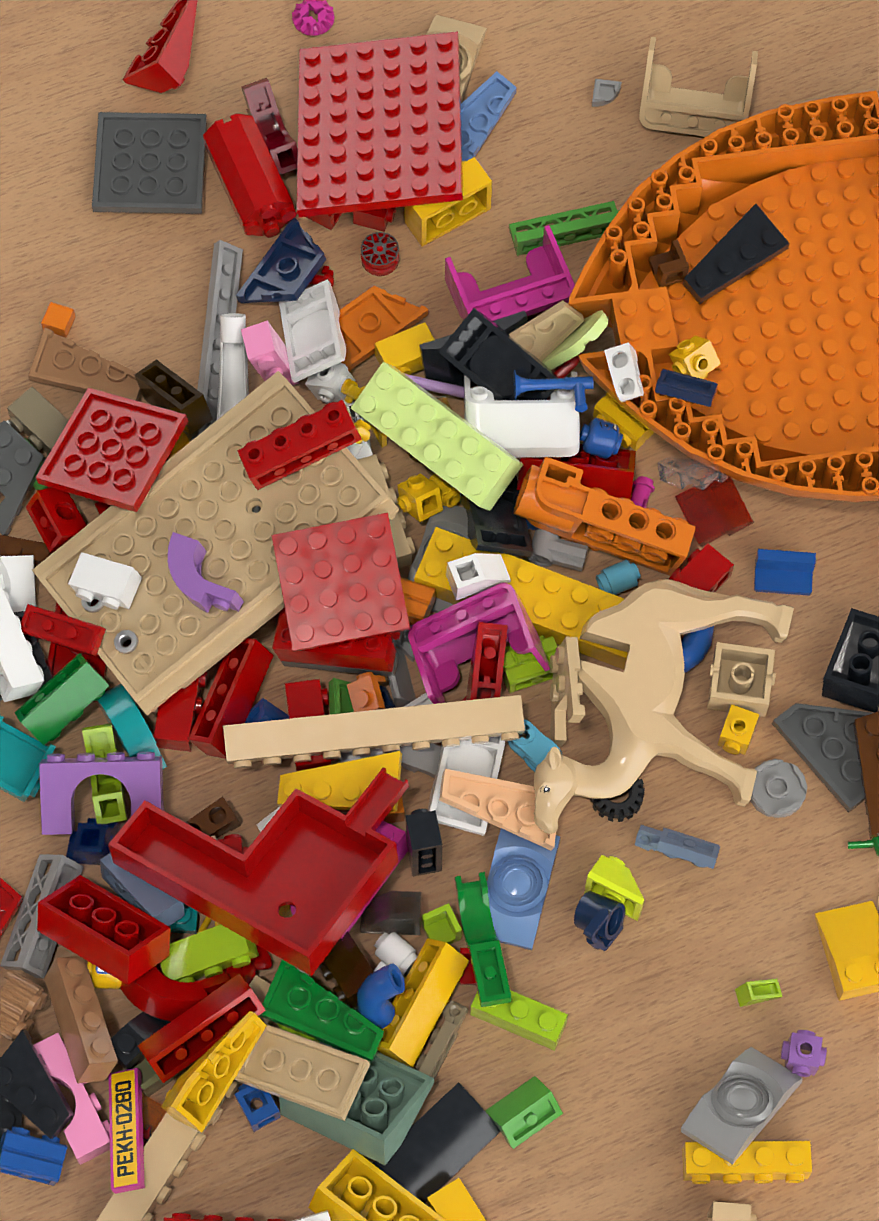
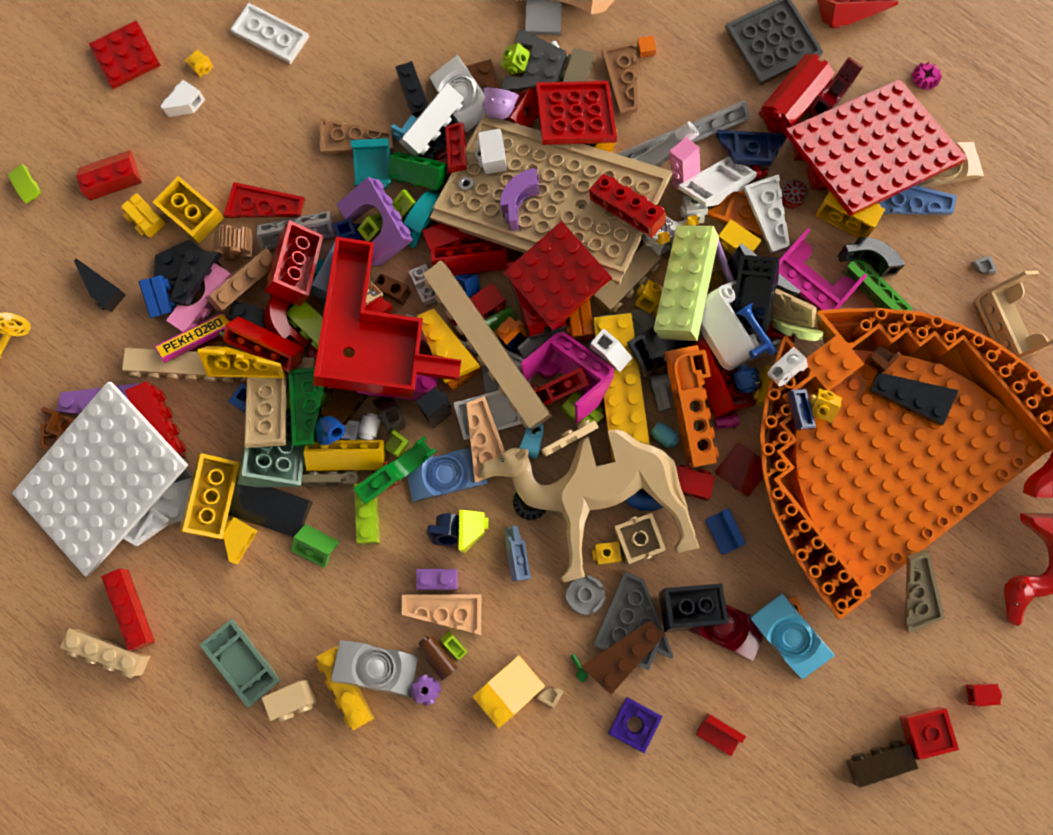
camera: 65 degrees right, 10 degrees up
(36, 539) = (499, 102): none -> lavender helmet
(169, 391) = (630, 129): dark brown brick -> none
(226, 780) = (426, 295): none -> white slope
(378, 291) = (767, 206): none -> white wing
(518, 202) = (876, 253): none -> black arch
(660, 965) = (437, 579): none -> medium lavender brick
(682, 471) = (752, 440): clear slope -> none
(709, 972) = (454, 611): none -> light nougat wing
(766, 1019) = (436, 657): none -> reddish brown brick

